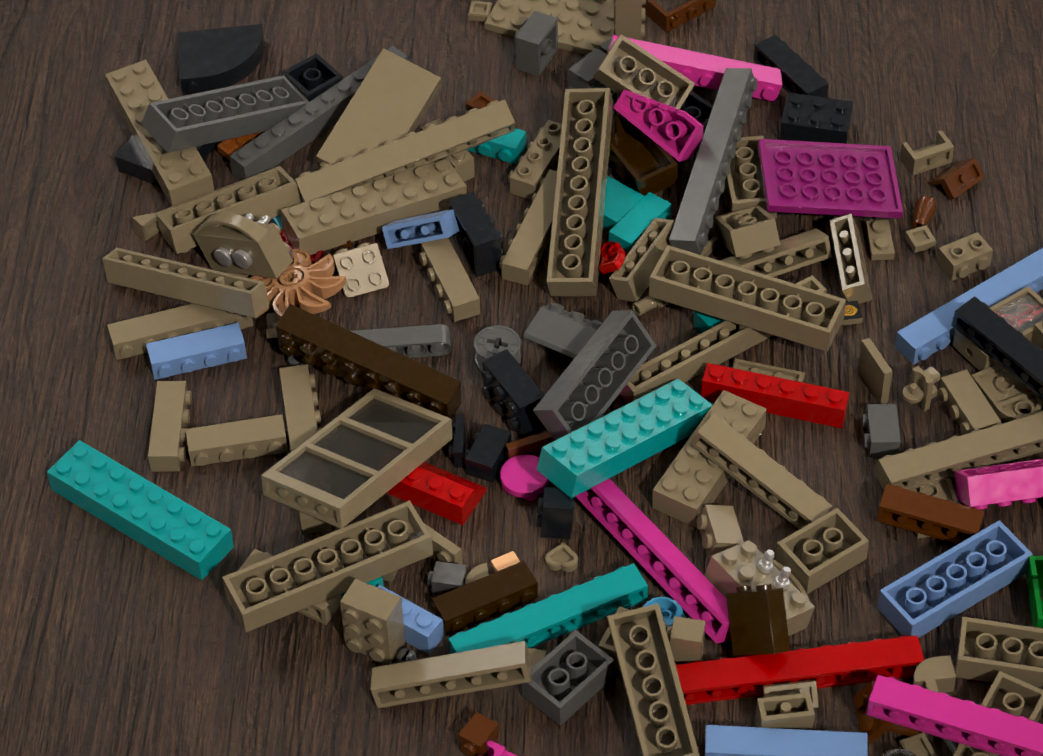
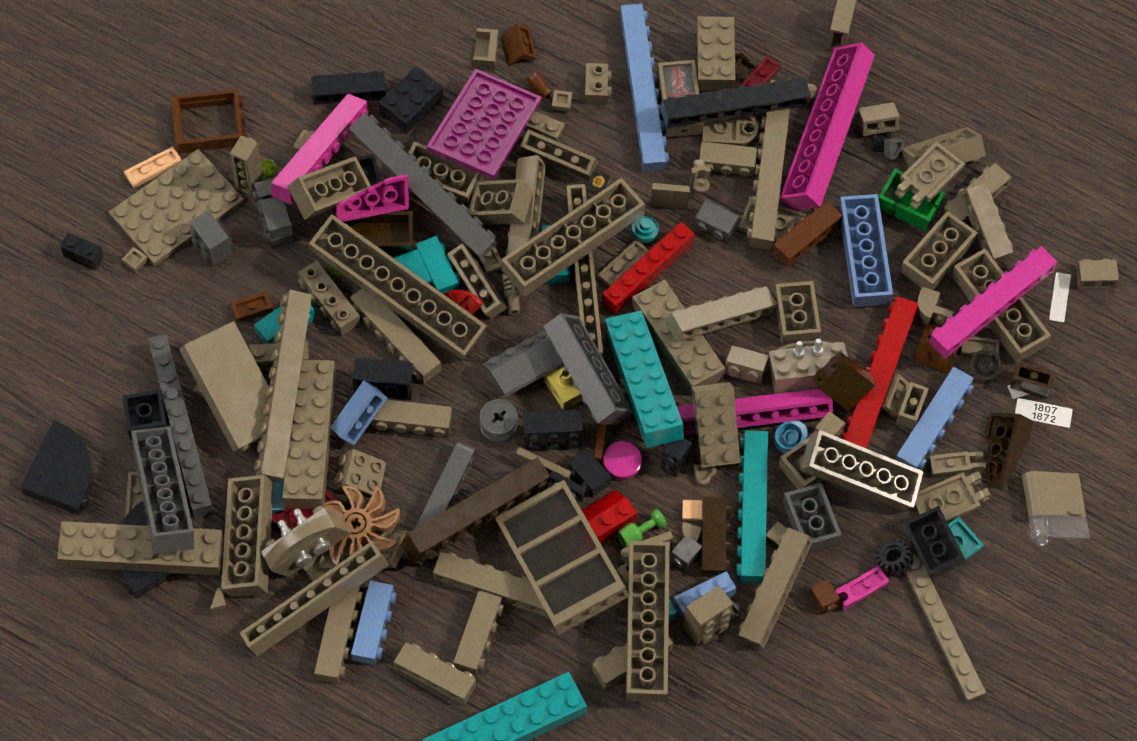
camera: 65 degrees left, 15 degrees up
(440, 521) = (631, 532): none -> bright green piece
(469, 409) = (524, 456): none -> dark tan tile
(614, 524) = (716, 424): none -> dark tan brick
(821, 372) = (645, 229): none -> teal plate

